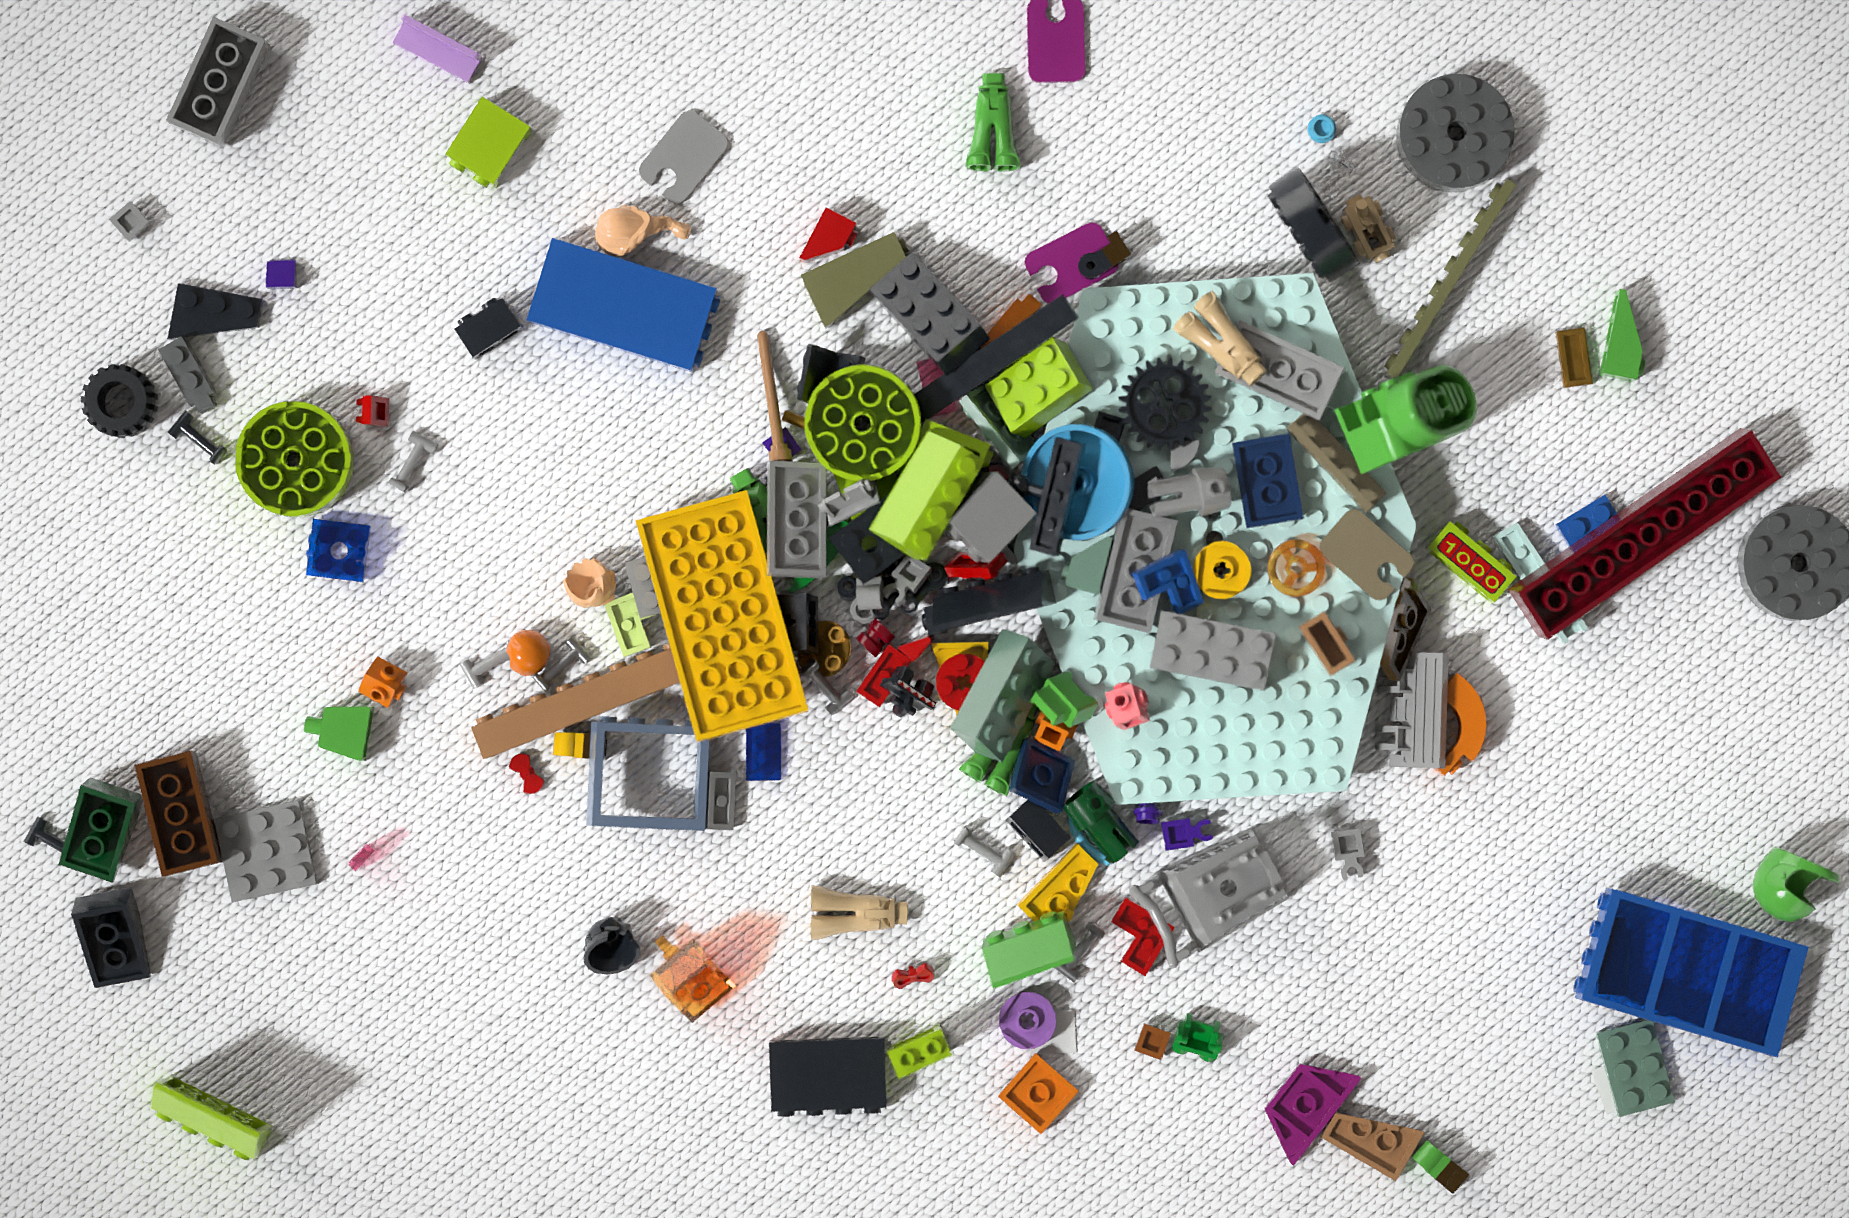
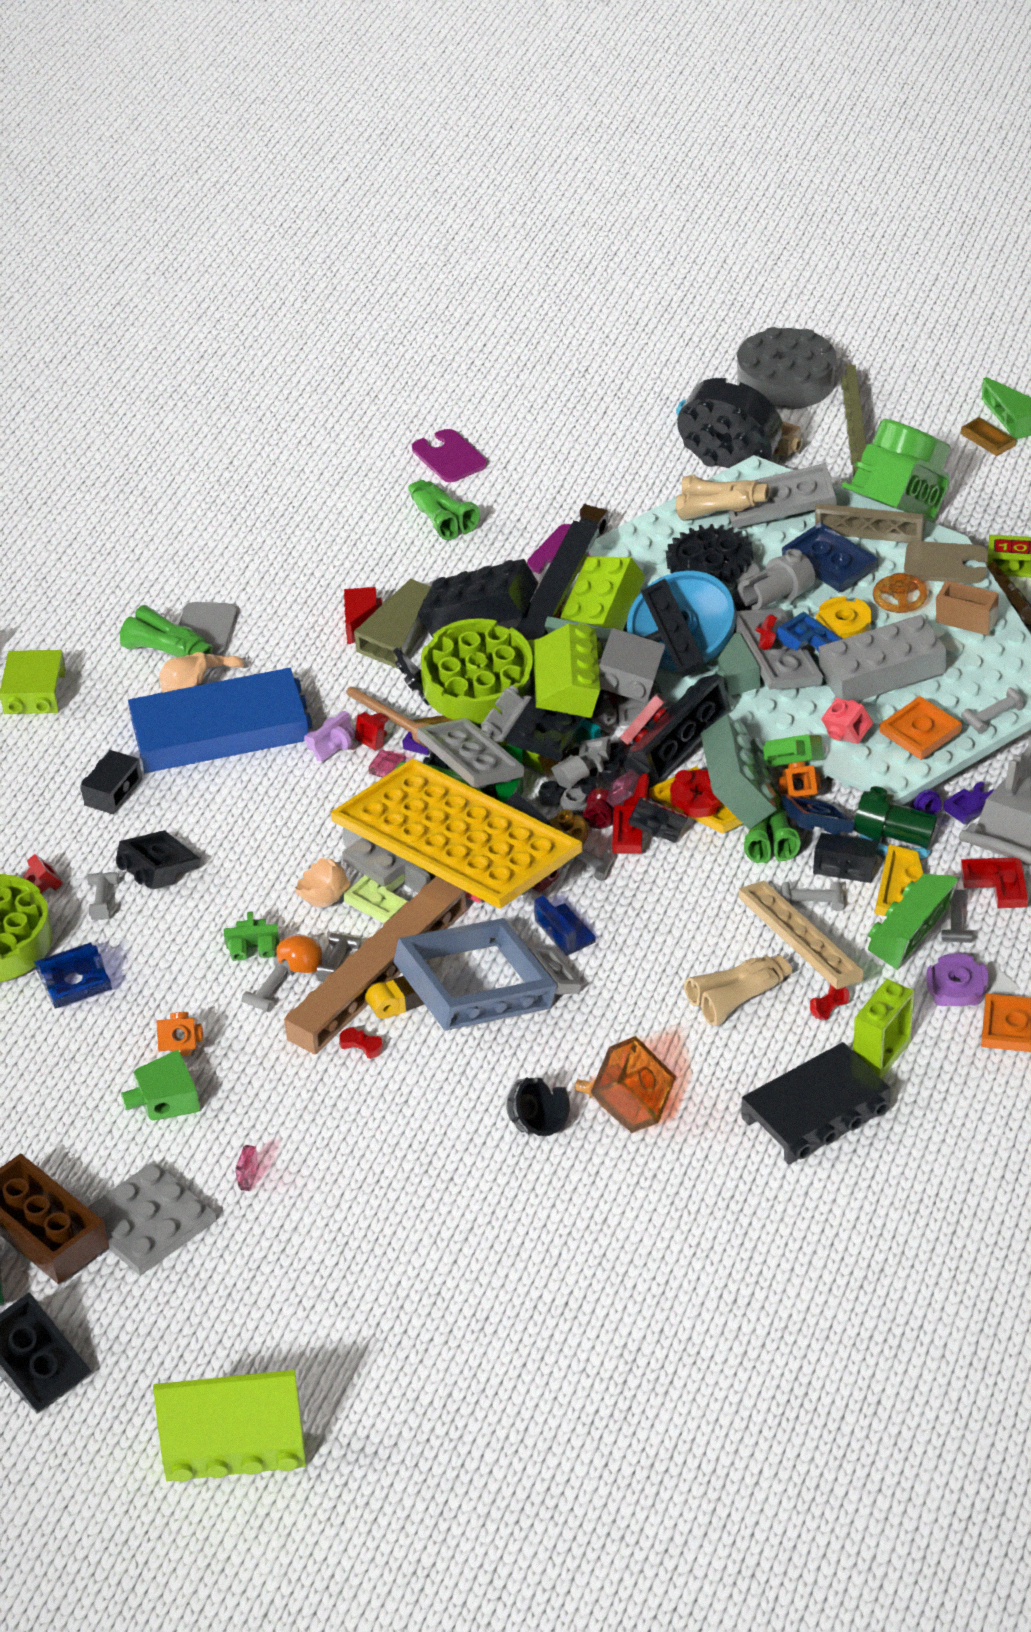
camera: 25 degrees left, 45 degrees down
(475, 456) = (155, 858): none -> black plate
(504, 600) = (251, 934): none -> bright green hips
(642, 174) = (154, 631): none -> bright green piece
(708, 396) = (331, 737): none -> lavender hips
(737, 456) = (385, 763): none -> clear pink tile
(745, 409) = (371, 729): none -> red tile
(899, 643) = (622, 788): none -> clear pink tile
(934, 898) = (801, 934): none -> tan plate
(1123, 571) = (767, 635): none -> red piece
(1187, 750) = (920, 727): none -> orange plate
(1242, 769) = (977, 720): none -> light grey piece

